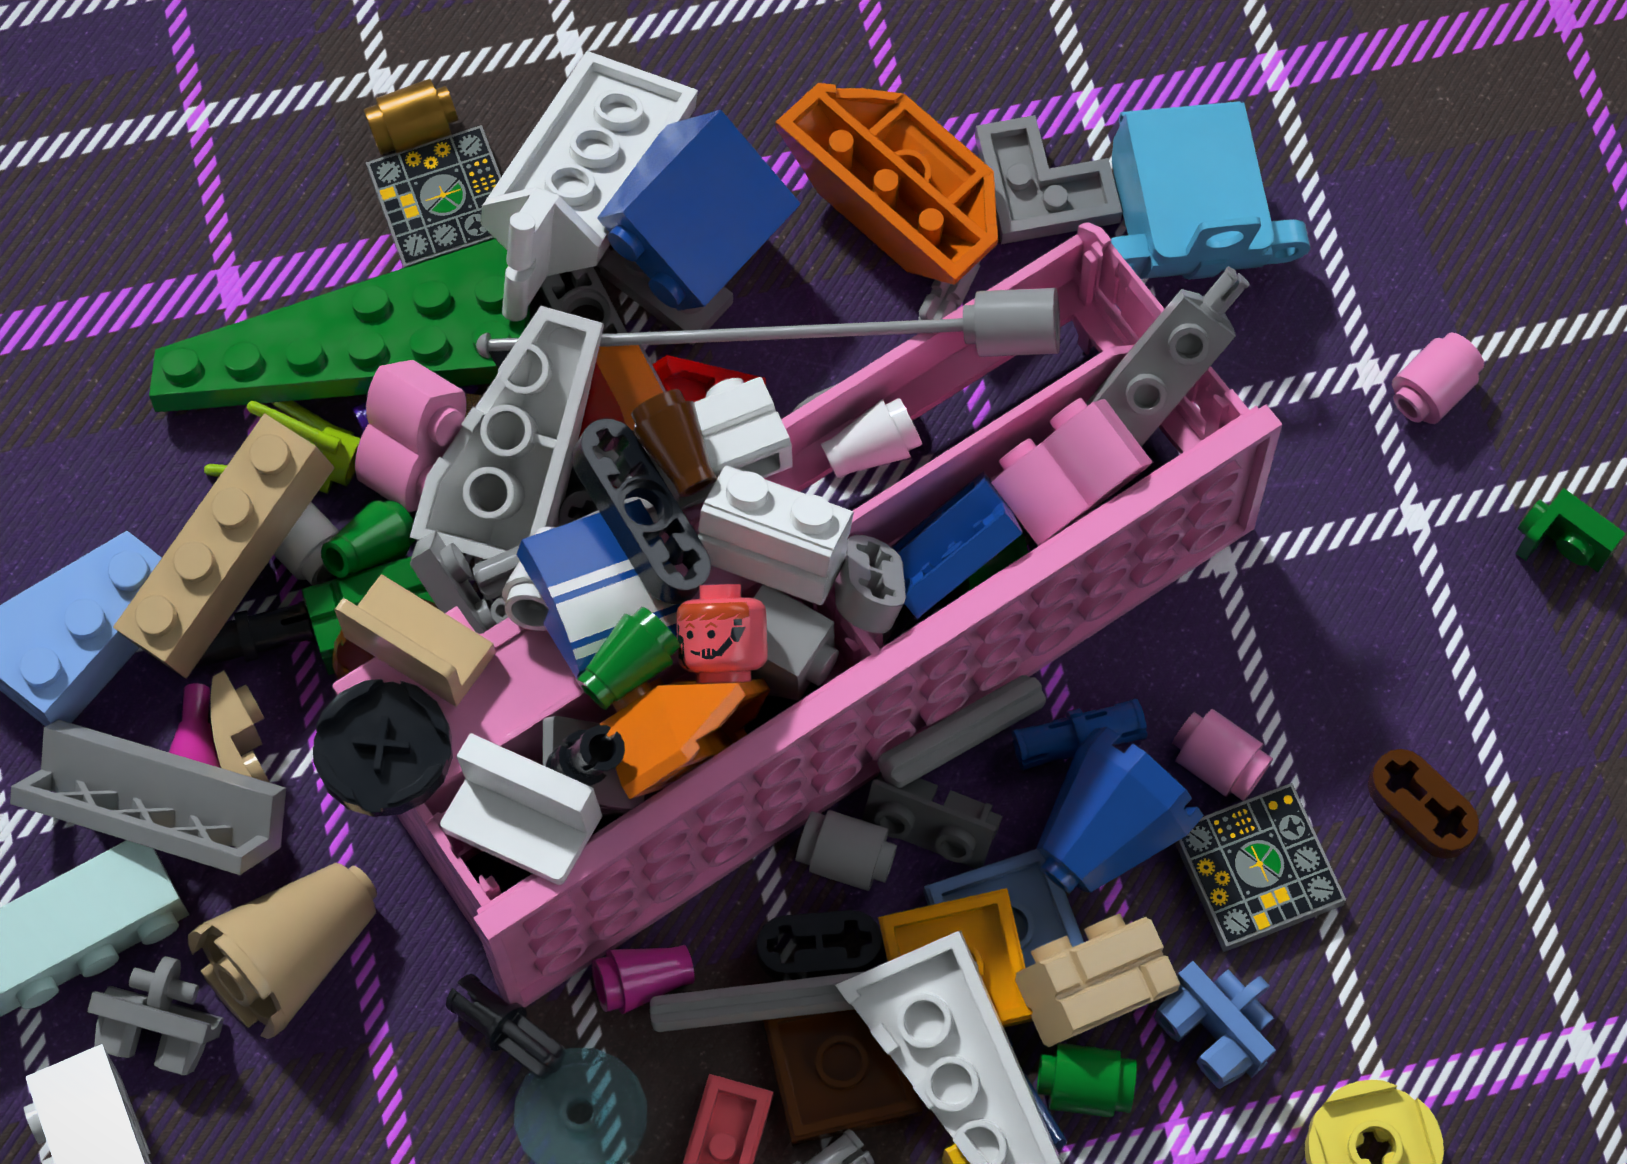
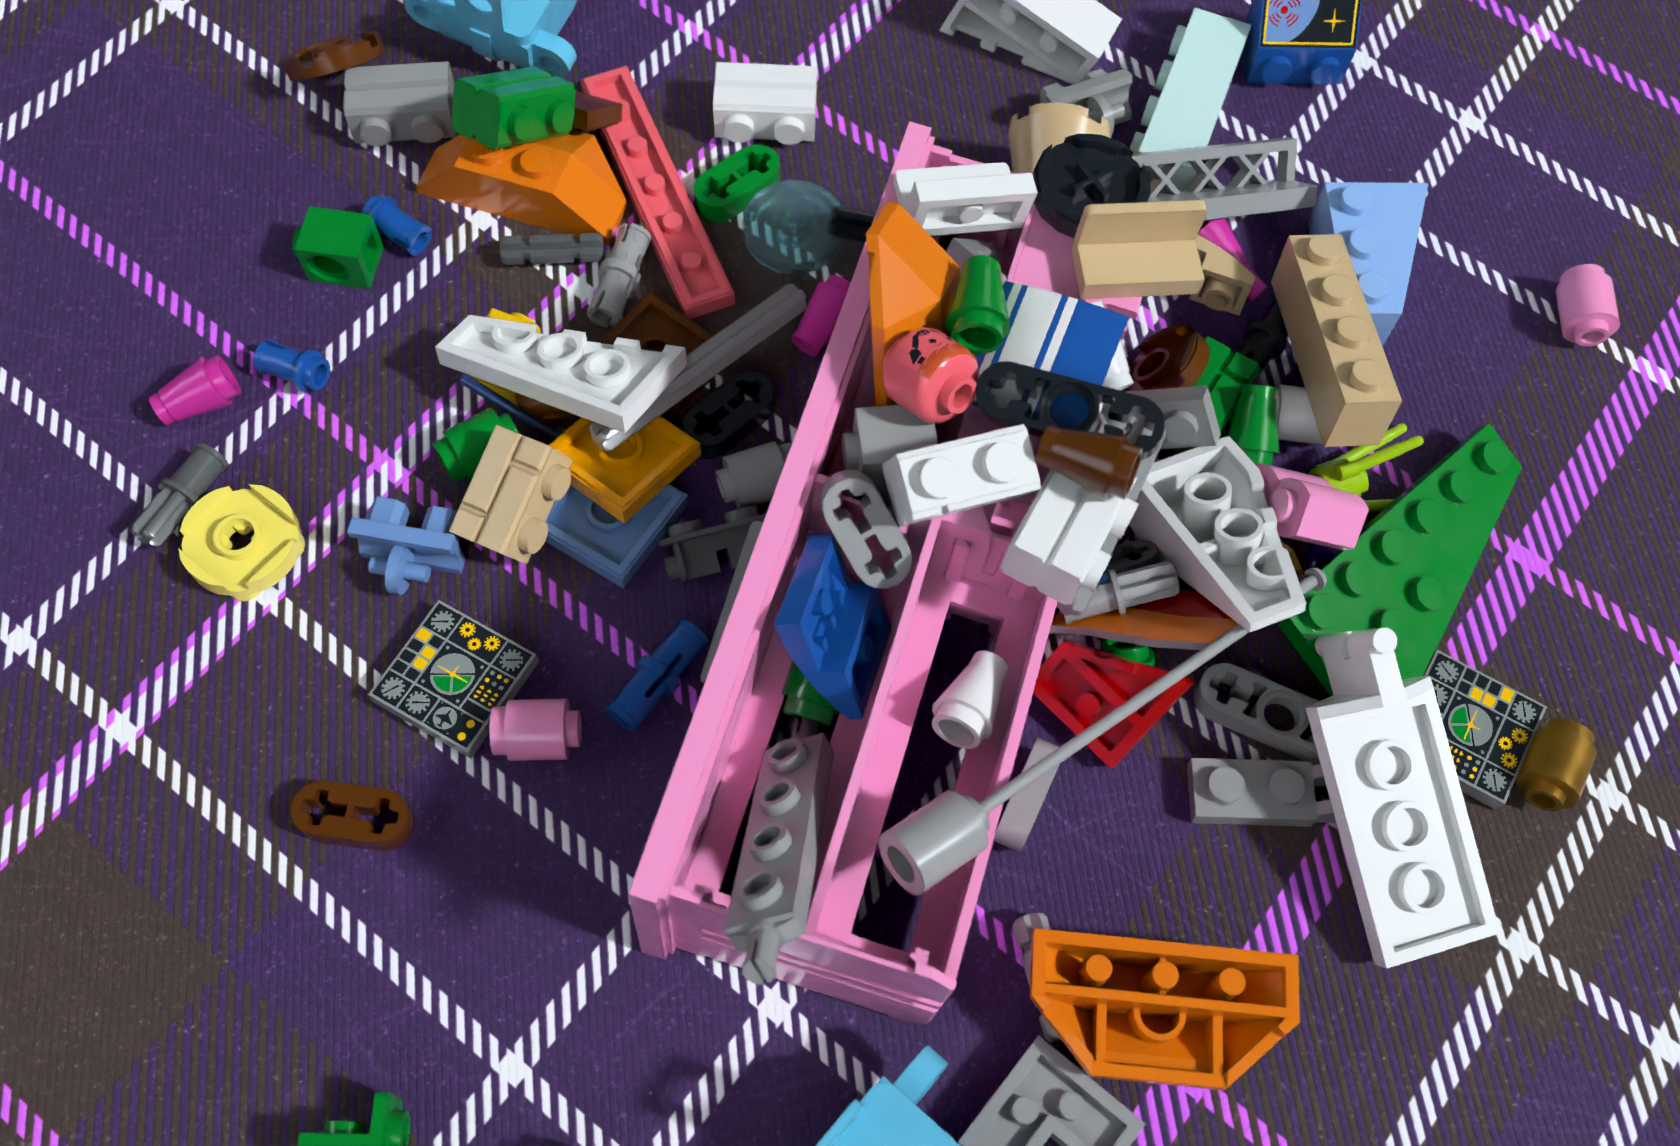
camera: 140 degrees right, 5 degrees down
(588, 754) = (945, 219): black pin -> none
(696, 209) = (1281, 811): blue slope -> none
(1070, 470) = (783, 740): bright pink brick -> none
(1111, 814) = (582, 616): blue cone -> none

